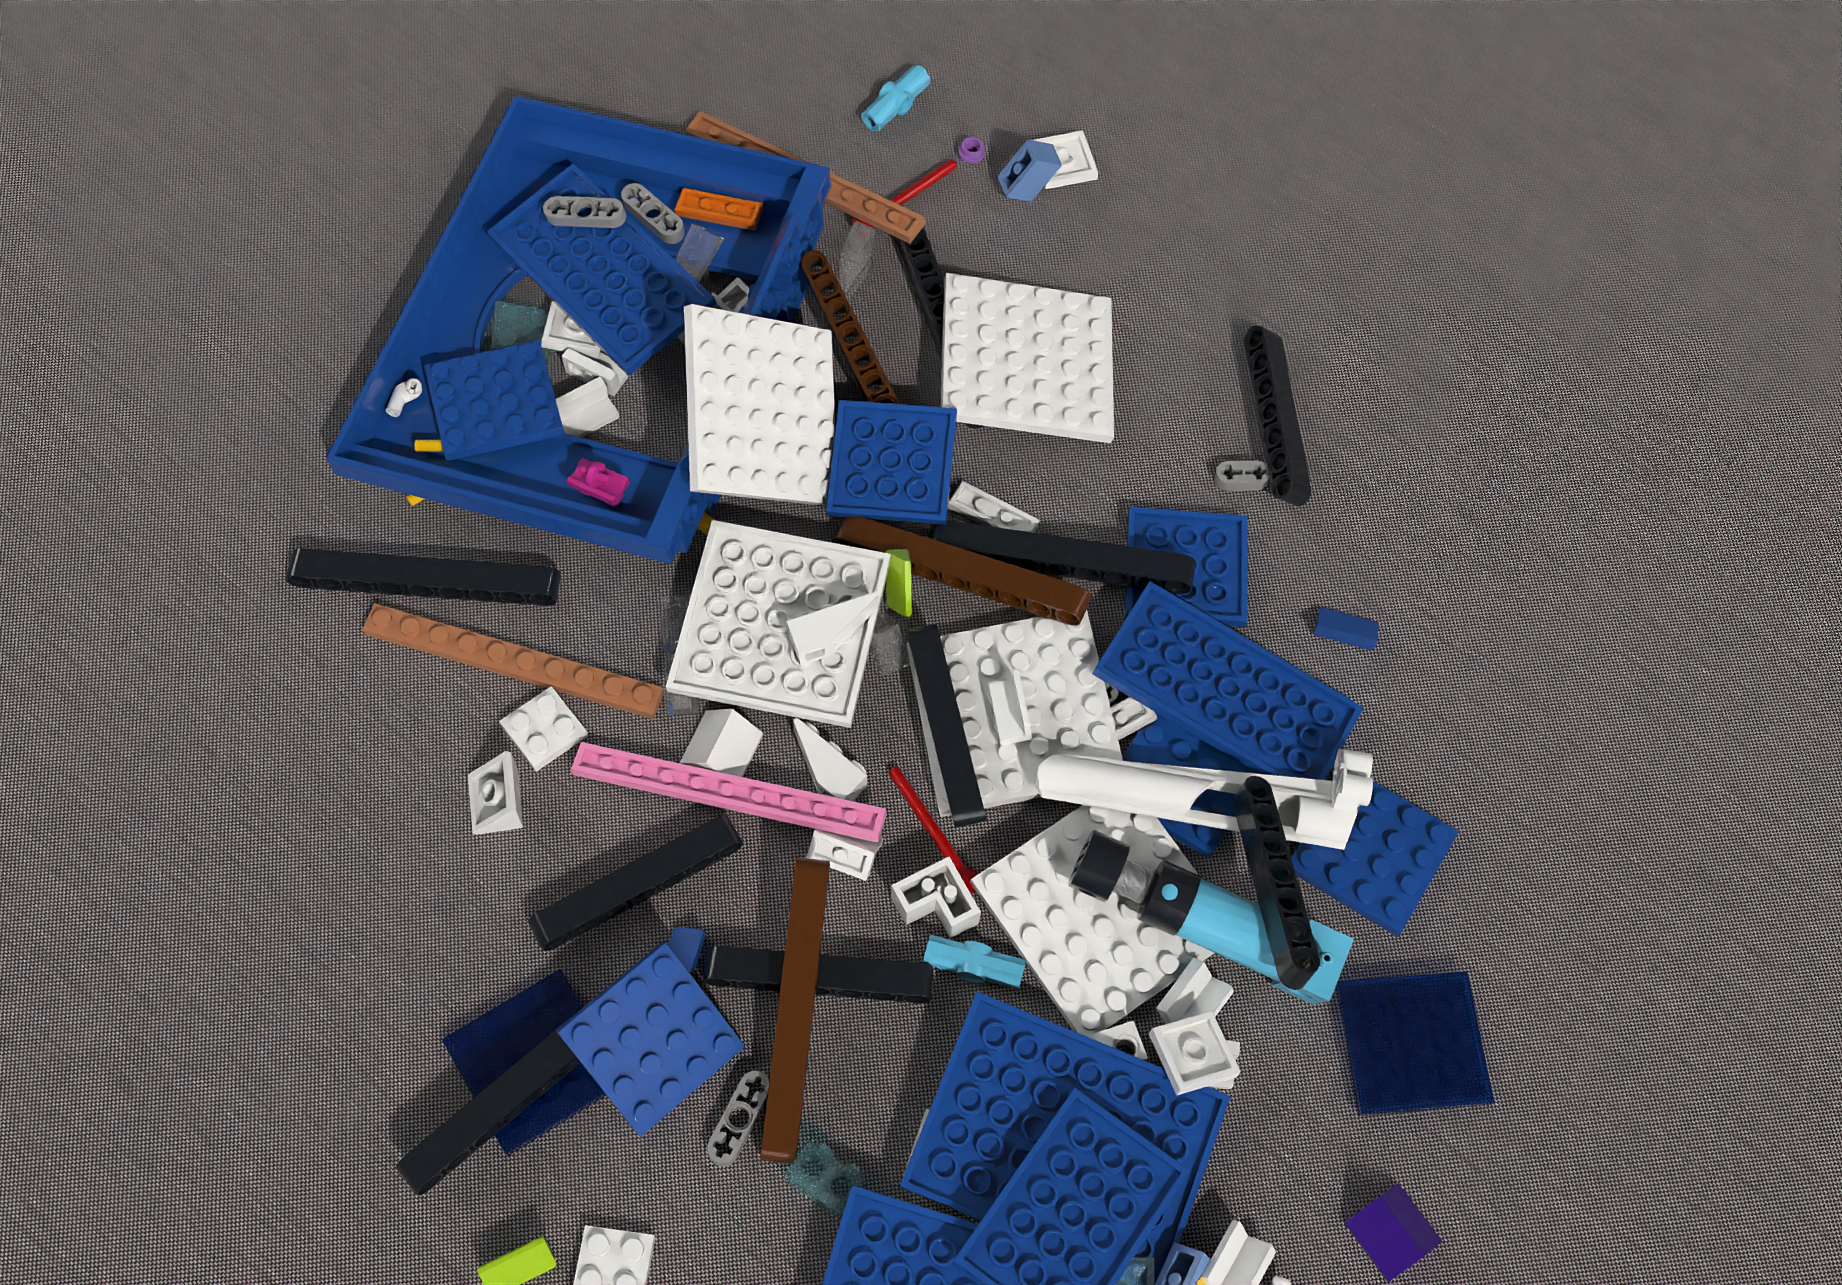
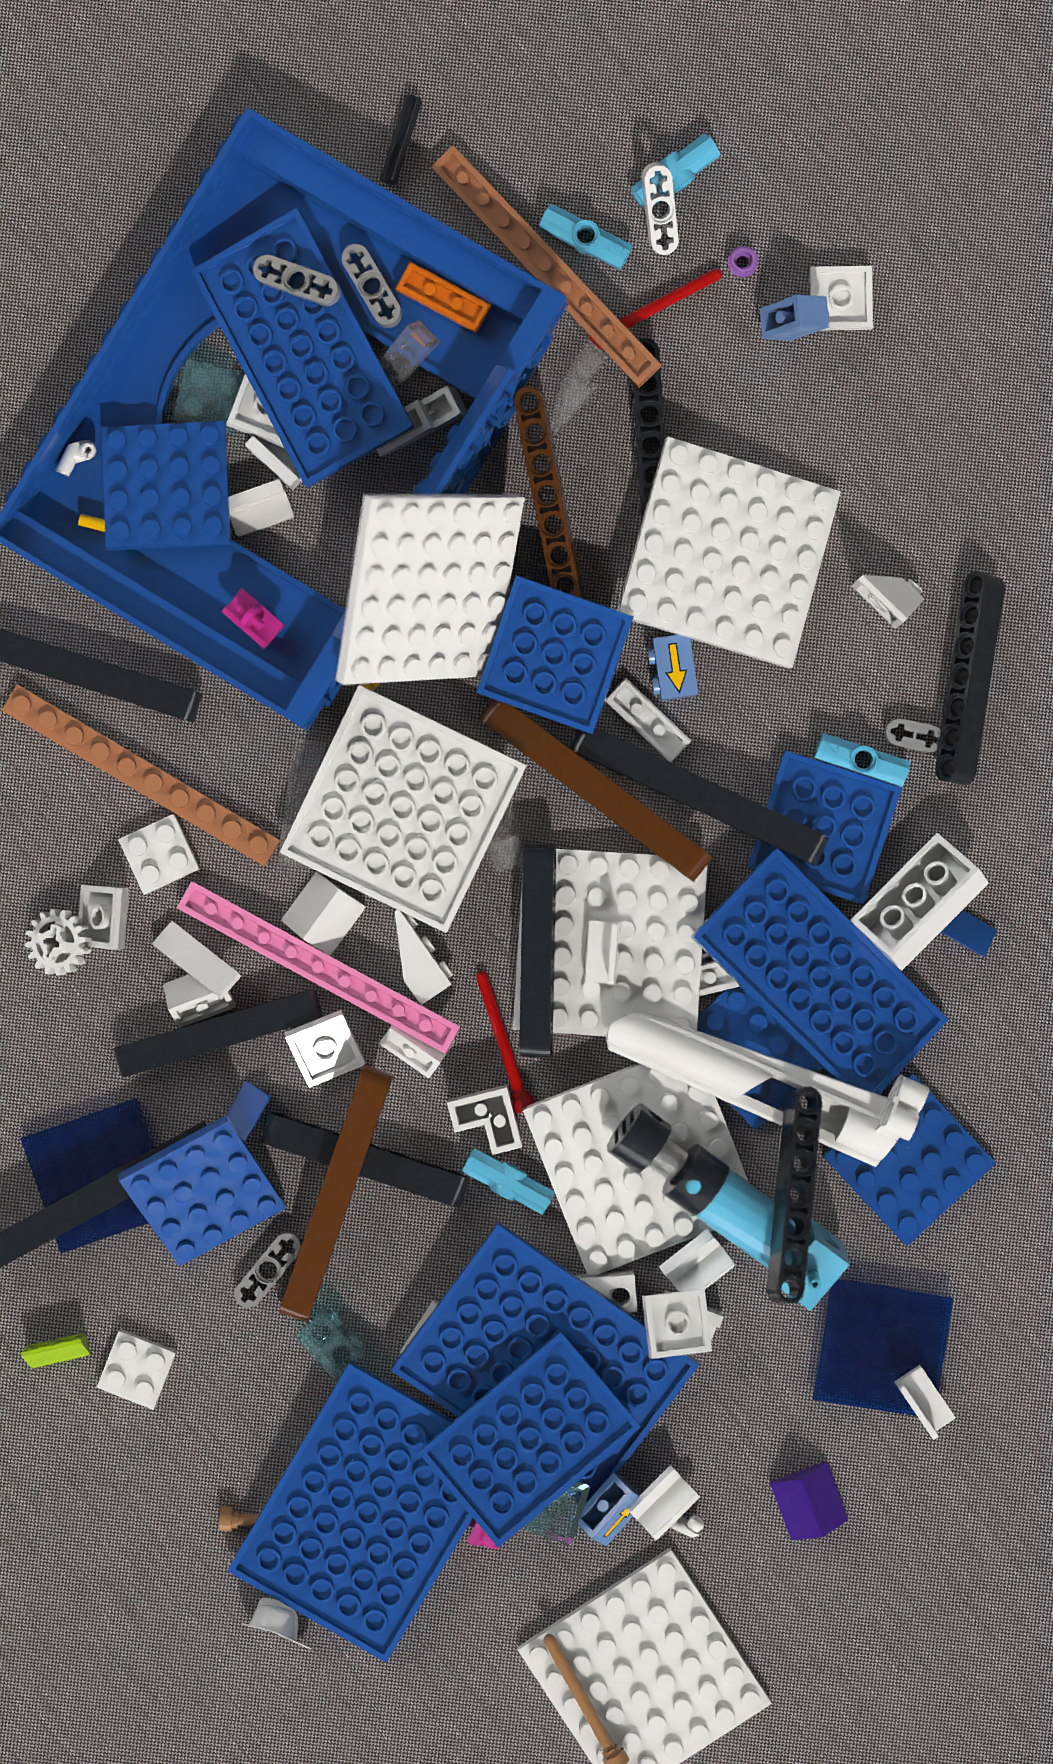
camera: 15 degrees right, 25 degrees up
(452, 828) = (47, 946): none -> white gear
(600, 812) = (196, 960): none -> white tile
(609, 850) = (191, 1001): none -> white panel
(656, 106) = (400, 139): none -> black axle
(751, 870) = (325, 1048): none -> white plate
(825, 630) = (438, 840): white slope -> none
(833, 154) = (568, 226): none -> medium azure piece
(885, 130) = (665, 184): none -> white beam
(899, 582) = (531, 787): lime slope -> none
(1005, 461) = (673, 667): none -> medium blue brick
(1178, 364) = (890, 596): none -> white slope
(1187, 499) = (881, 765): none -> medium azure piece
(1300, 600) = (920, 901): none -> white brick
(1477, 1081) = (925, 1400): none -> white panel

